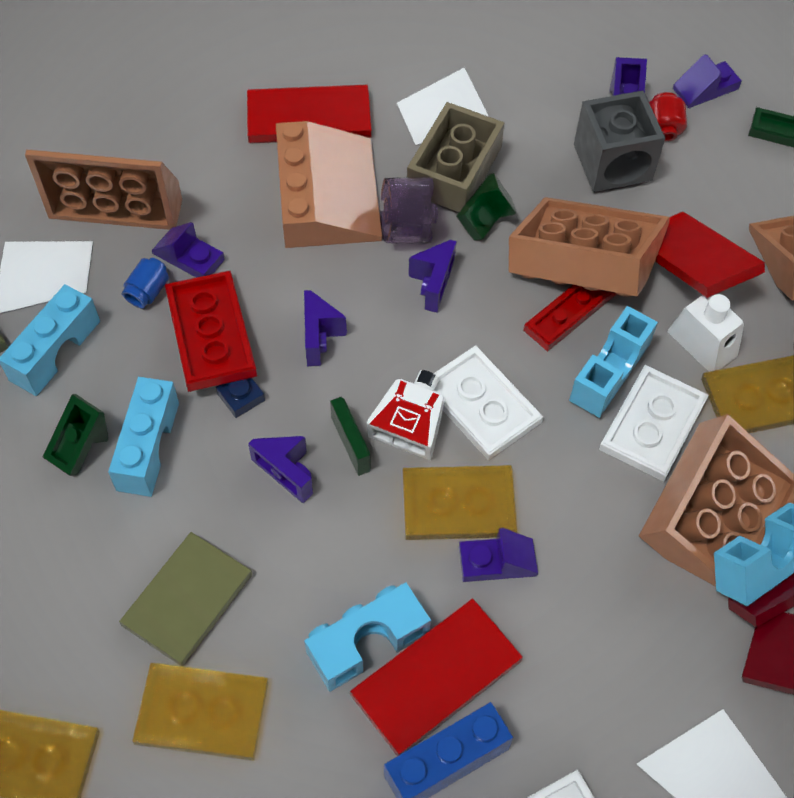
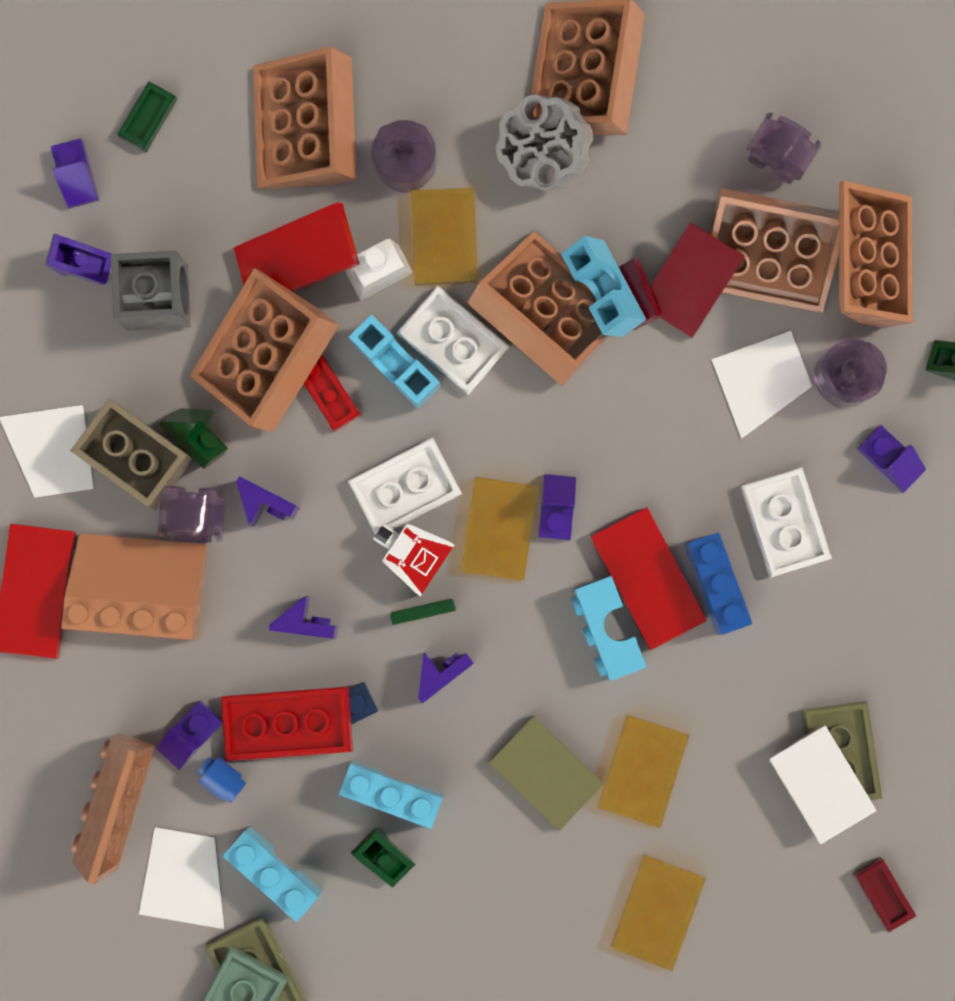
camera: 75 degrees left, 25 degrees up
(670, 114) = (115, 229): red head -> none

